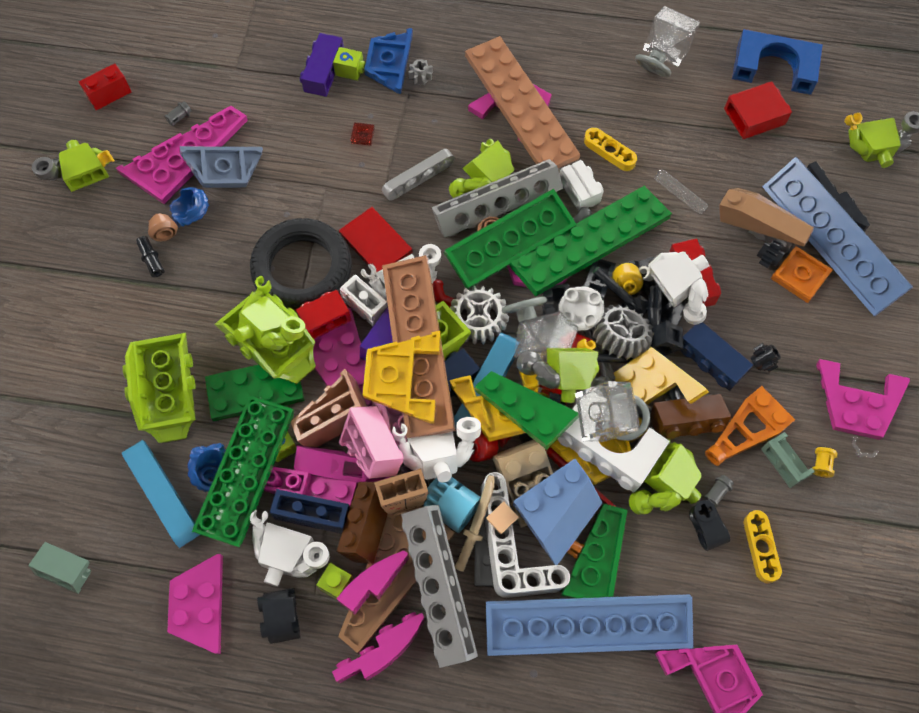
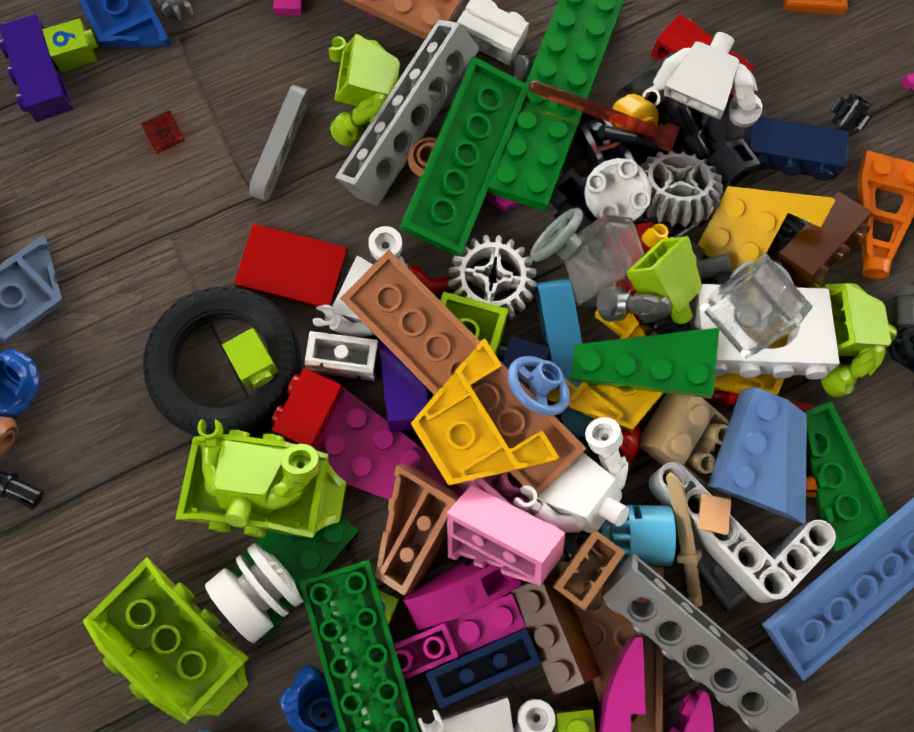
camera: 40 degrees left, 10 degrees up
(217, 384) = (249, 597): none -> white wheel
(312, 266) = (250, 359): none -> lime brick
(456, 374) = (541, 381): none -> medium blue piece
(633, 295) = (663, 134): none -> clear red piece

